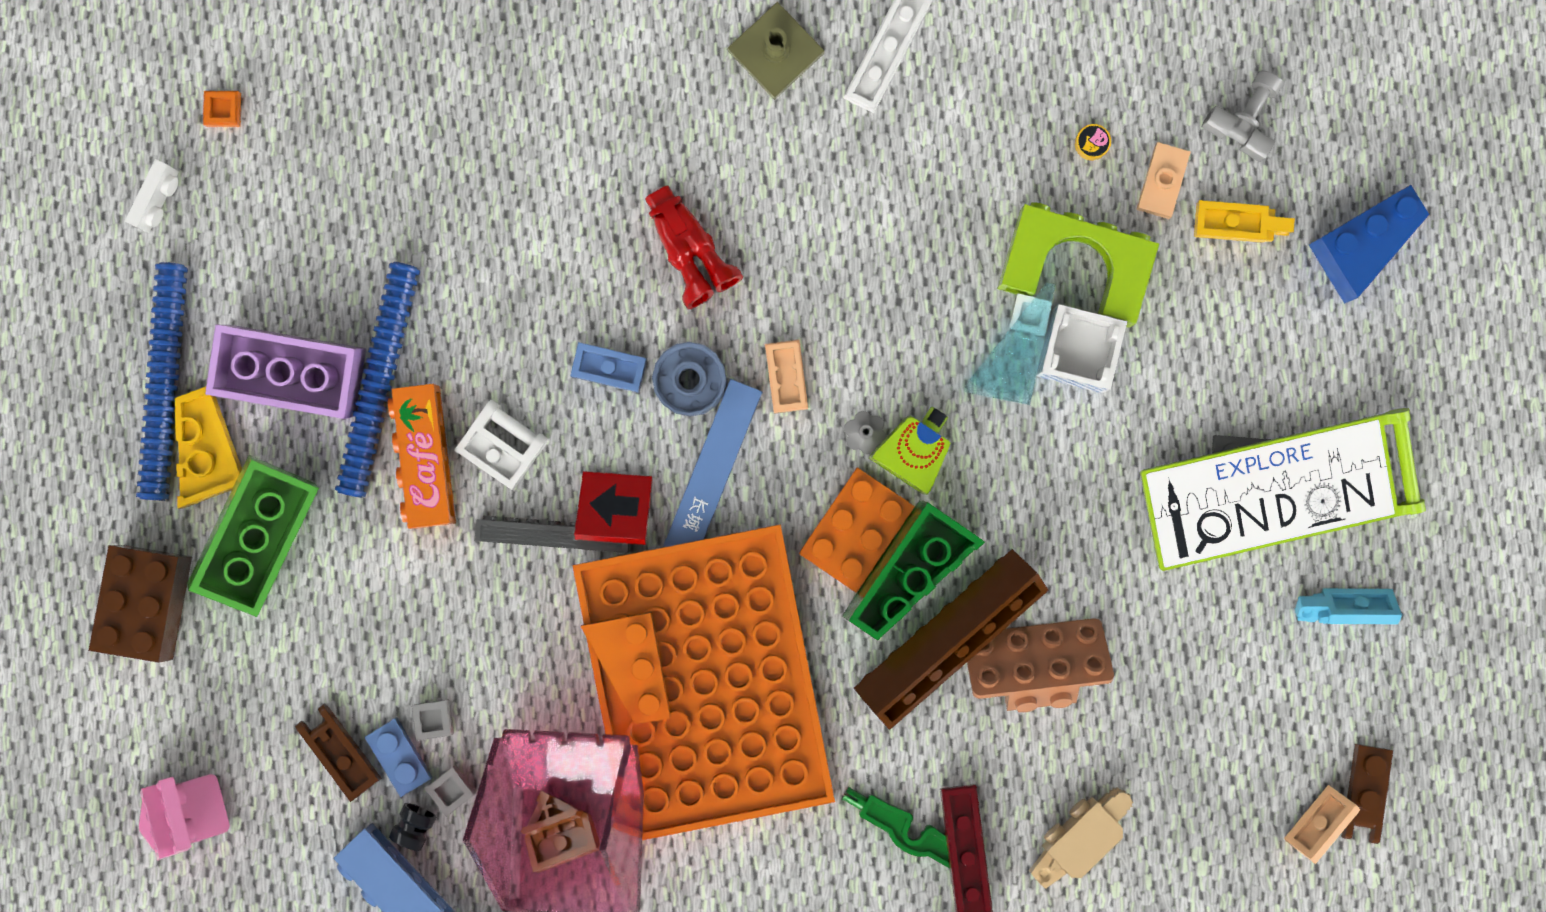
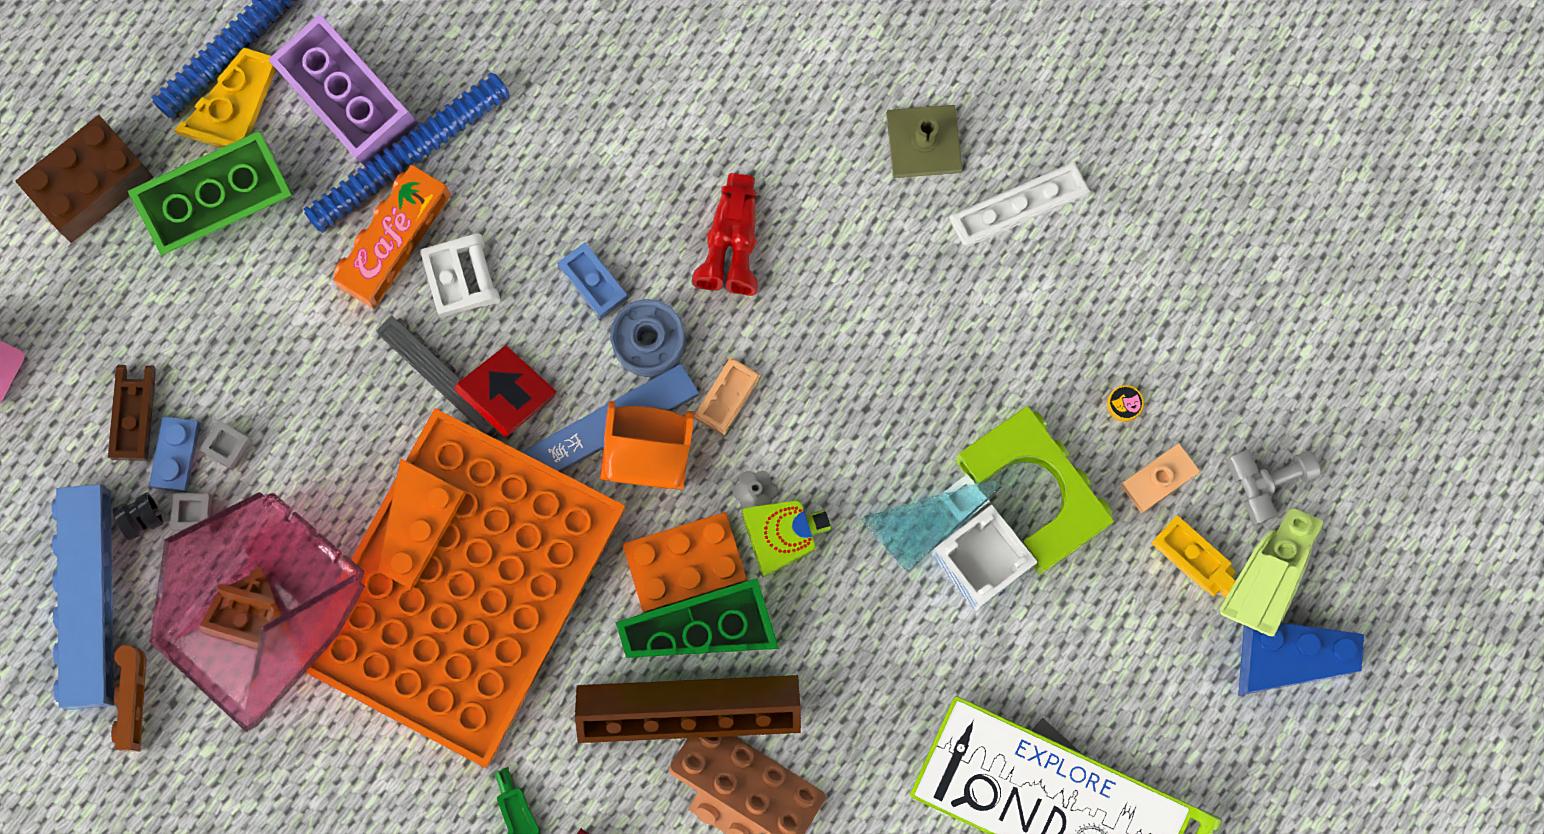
camera: 35 degrees right, 10 degrees down
(758, 465) = (646, 446): none -> orange piece
(1308, 190) = (1273, 574): none -> yellowish green piece

